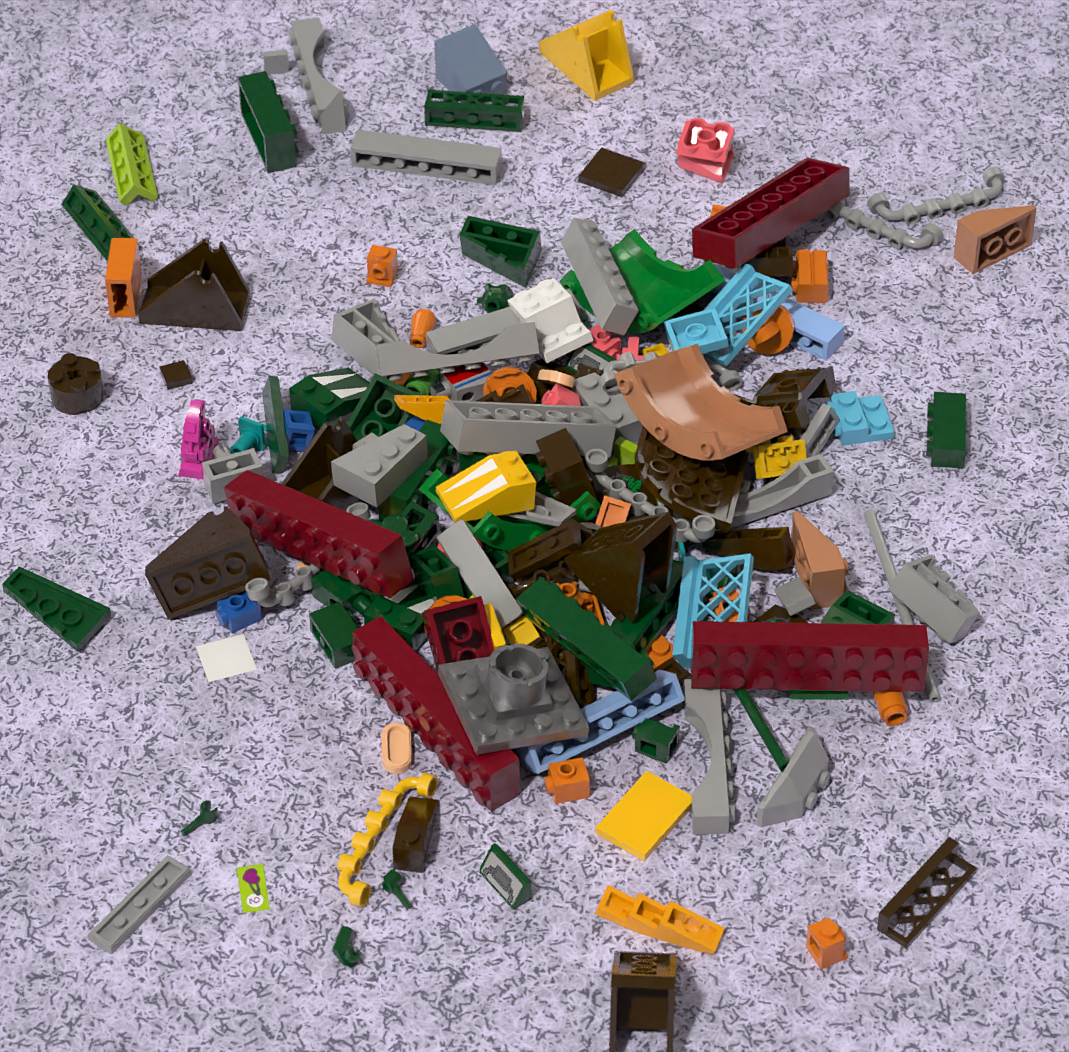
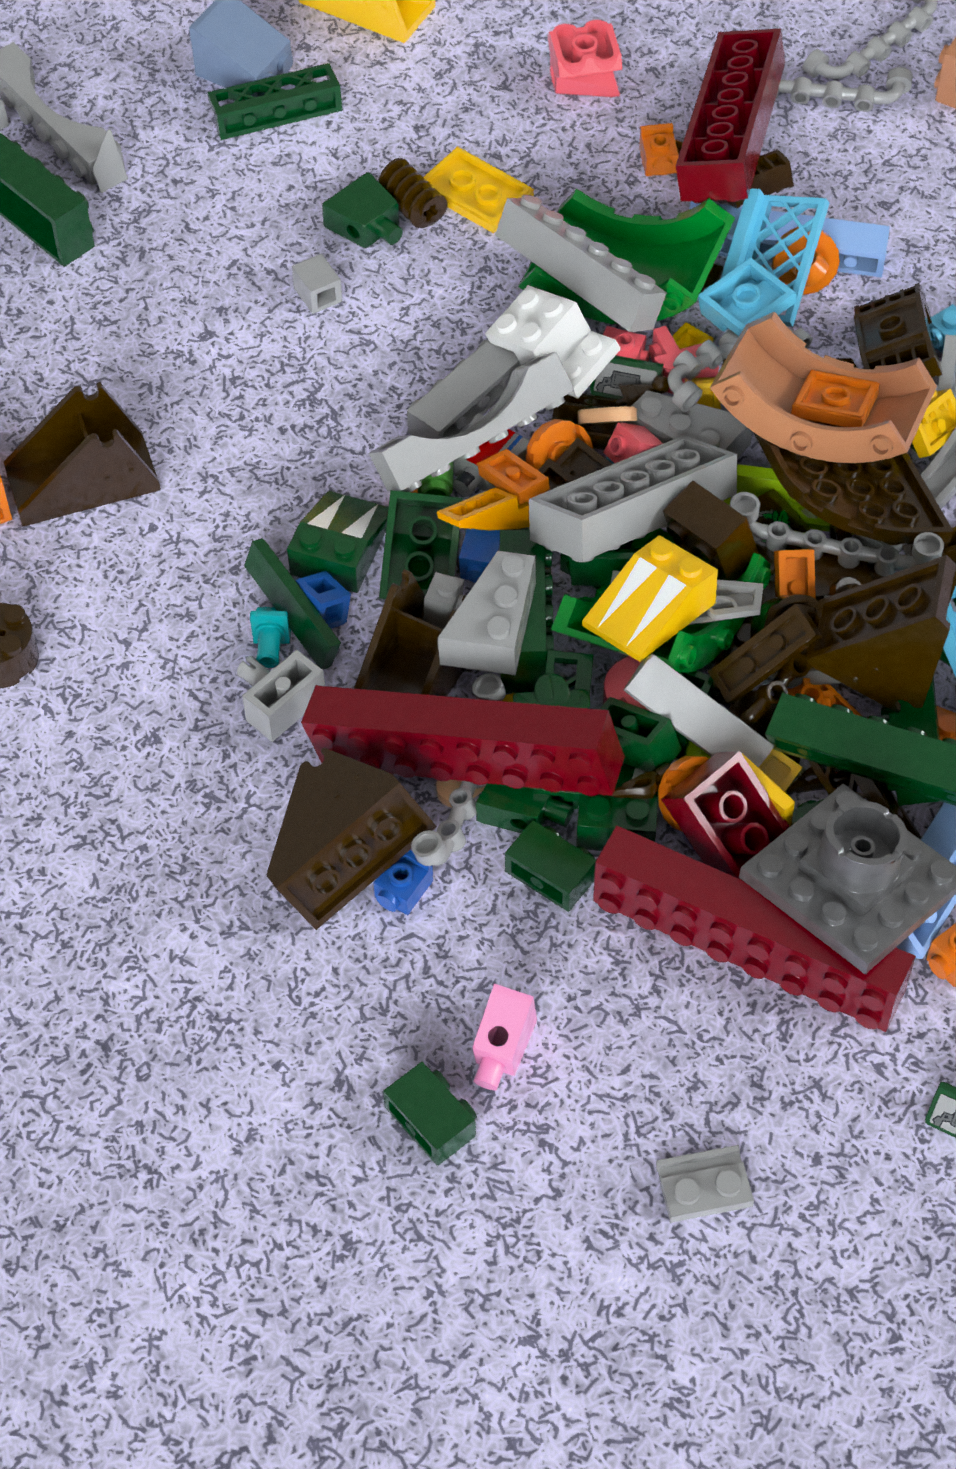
camera: 25 degrees left, 10 degrees up
(57, 607) = (166, 973): dark green wing -> none
(139, 904) = (534, 1368): light grey tile -> none
(167, 743) = (430, 1112): none -> dark green brick
(175, 375) = (115, 581): dark brown tile -> none
(197, 441) = (210, 670): dark pink piece -> none
(206, 817) = (537, 1199): dark green hand -> none
(226, 658) = (421, 953): white sticker -> none
(239, 714) = (506, 1022): none -> bright pink torso
(253, 888) = (662, 1274): lime sticker -> none
(312, 848) = (704, 1183): none -> light grey plate
(342, 948) = (838, 1317): dark green arm -> none
(359, 331) = (335, 443): light grey wedge -> none
(377, 822) = (765, 1144): yellow bar -> none
(382, 265) = (290, 341): orange brick -> none
(390, 885) = (834, 1192): dark green hand -> none
(396, 748) = (717, 992): light nougat tile -> none
(414, 834) = (822, 1105): dark brown slope -> none
(416, 603) = (642, 786): none -> dark brown hand
(421, 322) = (389, 405): orange cone -> none
(424, 236) = (317, 283): none -> light grey brick
(426, 157) = (254, 180): light grey brick -> none
(462, 389) = (513, 475): none -> orange plate
(485, 198) = (363, 213): none -> dark green torso
(495, 297) = (460, 336): dark green rock -> none
(502, 247) = (424, 267): dark green wedge -> none
(526, 198) = (413, 194): none -> dark brown piece
(578, 202) = (475, 187): none -> yellow tile
(611, 172) = (484, 125): dark brown tile -> none
(710, 415) = (835, 399): none -> orange tile
(811, 276) = (808, 175): orange brick -> none

